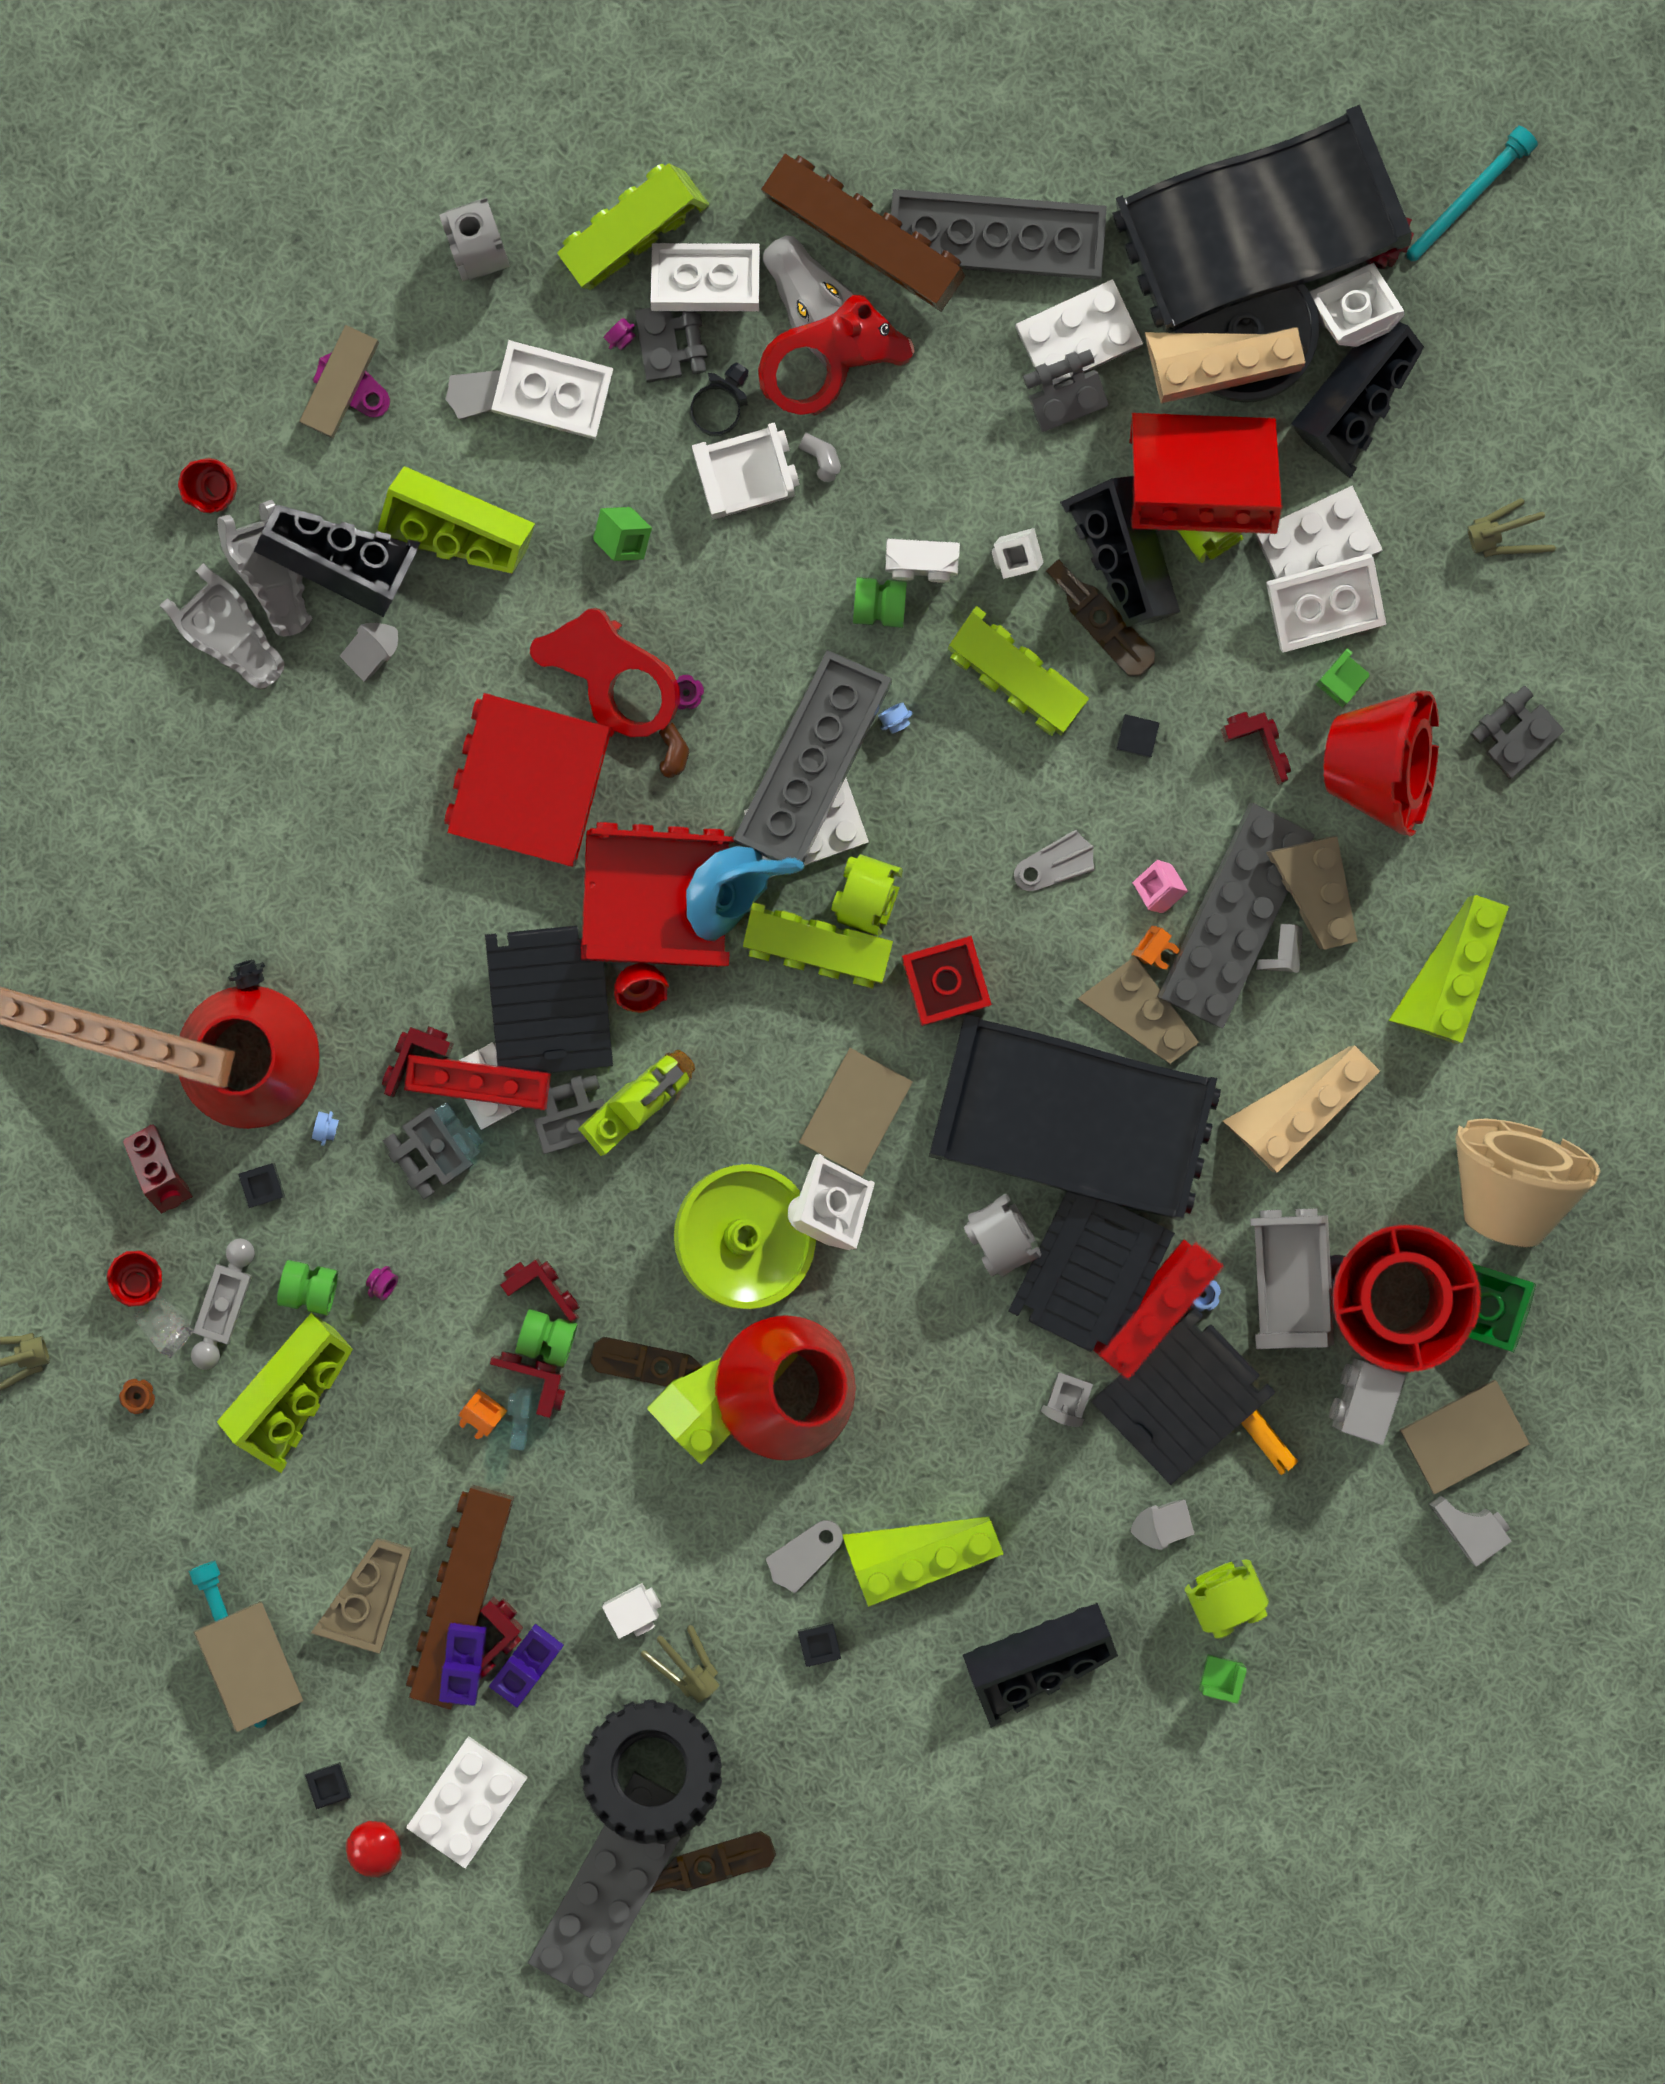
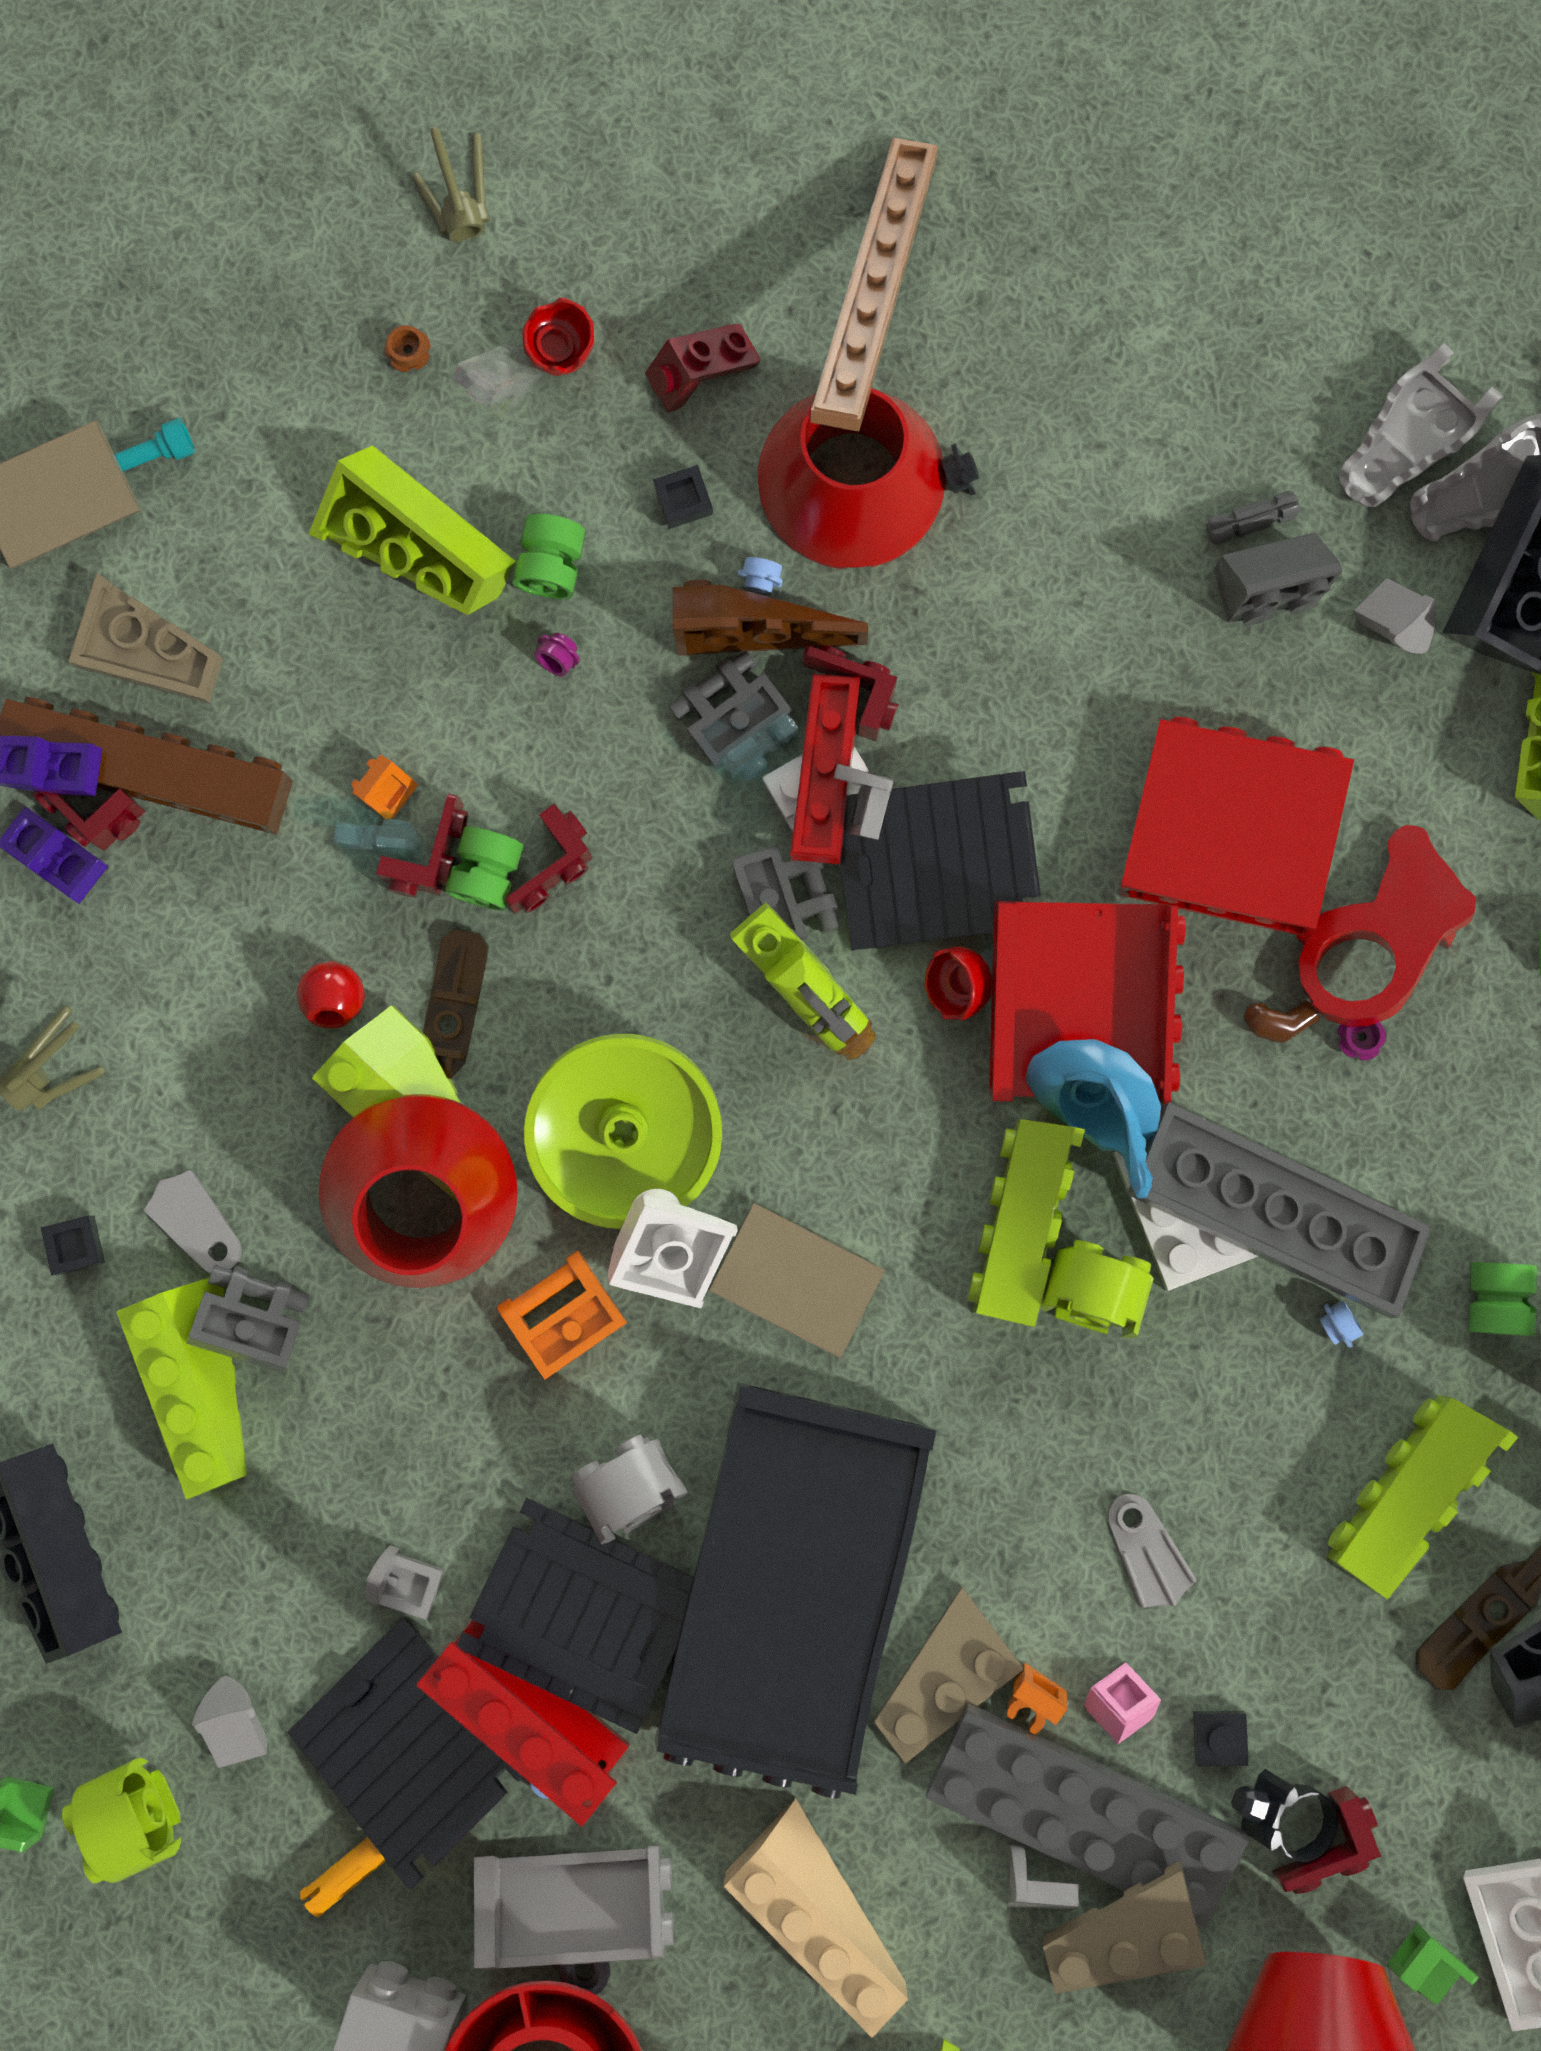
camera: 95 degrees right, 5 degrees down
(222, 1304) = (527, 451): light grey plate -> none
(289, 754) = (1253, 517): none -> dark grey axle
(338, 741) = (1276, 578): none -> dark grey slope
(360, 1152) = (734, 620): none -> reddish brown wedge
(505, 1049) = (870, 802): none -> light grey tile
(633, 1611) = (119, 991): white brick -> none
(638, 1453) = (330, 991): none -> red piece
(883, 1515) = (243, 1330): none -> dark grey plate
(887, 1277) = (571, 1328): none -> orange plate
(946, 981) = (981, 1403): red brick -> none
(1137, 736) = (1332, 1667): black tile -> none
(1185, 817) = (1220, 1738): none -> black plate
(1231, 790) = (1264, 1805): none -> black piece

